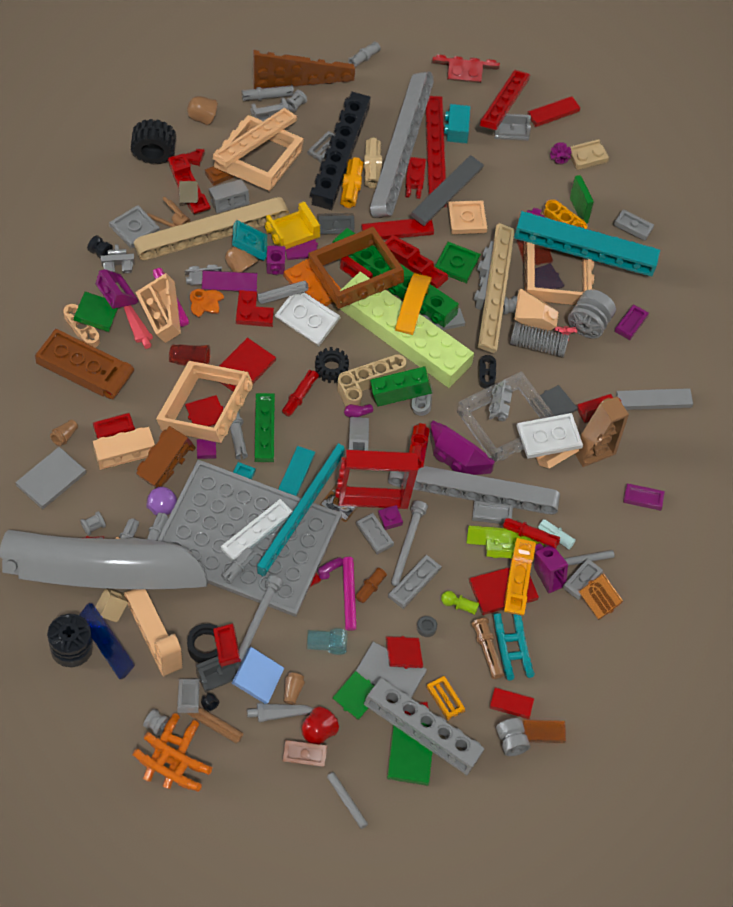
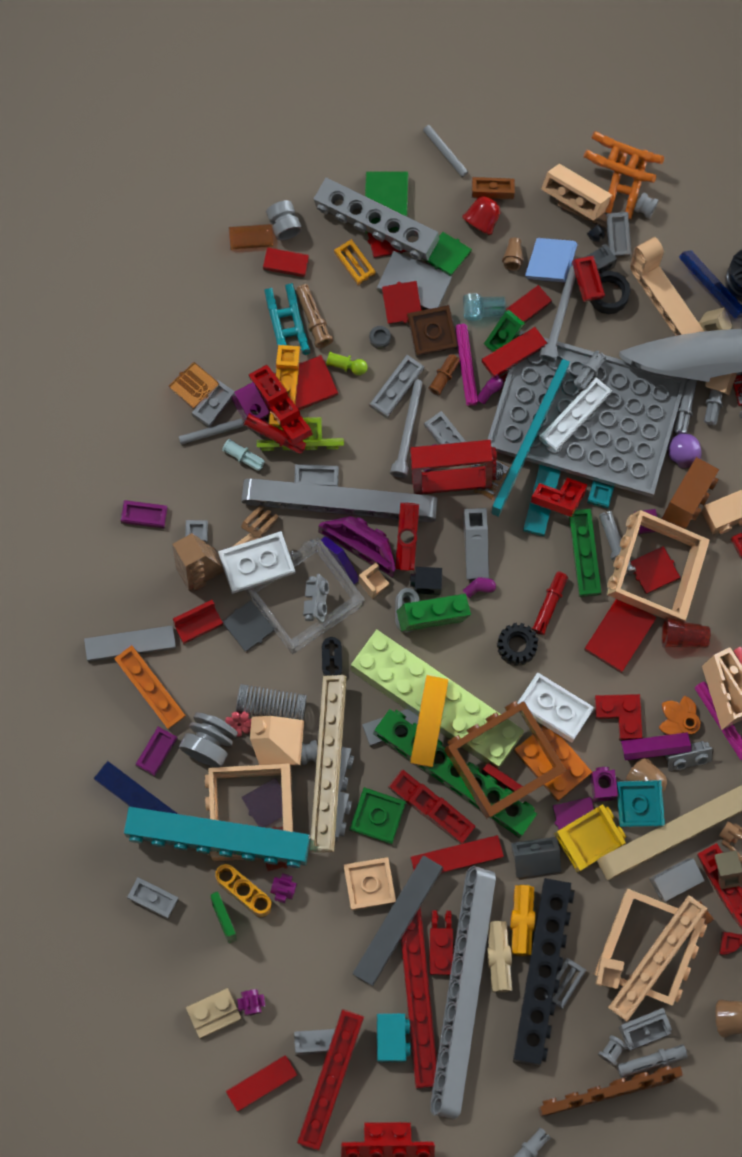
camera: 175 degrees right, 15 degrees up
(224, 735) = (576, 192): none -> light nougat brick
(277, 711) = (525, 232): light grey bar -> none
(278, 462) = (563, 500): none -> red plate
(283, 292) = (588, 730): light grey axle -> none
(284, 641) = (530, 304): none -> red tile
(293, 135) = (609, 972): none -> light nougat panel
(305, 590) = (514, 352): none -> red tile
(310, 613) = (505, 331): none -> green slope
(357, 384) = (466, 629): tan beam -> none
(378, 624) = (432, 330): none -> reddish brown tile
(403, 417) = (427, 580): none -> black brick
(452, 419) = (373, 581): none -> light nougat panel
(476, 438) = (342, 559): none -> dark purple tile
(526, 553) = (280, 404): none -> red slope
(552, 457) = (264, 515): none -> medium nougat tile
(598, 478) = (198, 528): none -> light grey tile
(638, 362) = (150, 687): none -> orange plate
(648, 293) = (128, 790): none -> clear blue tile

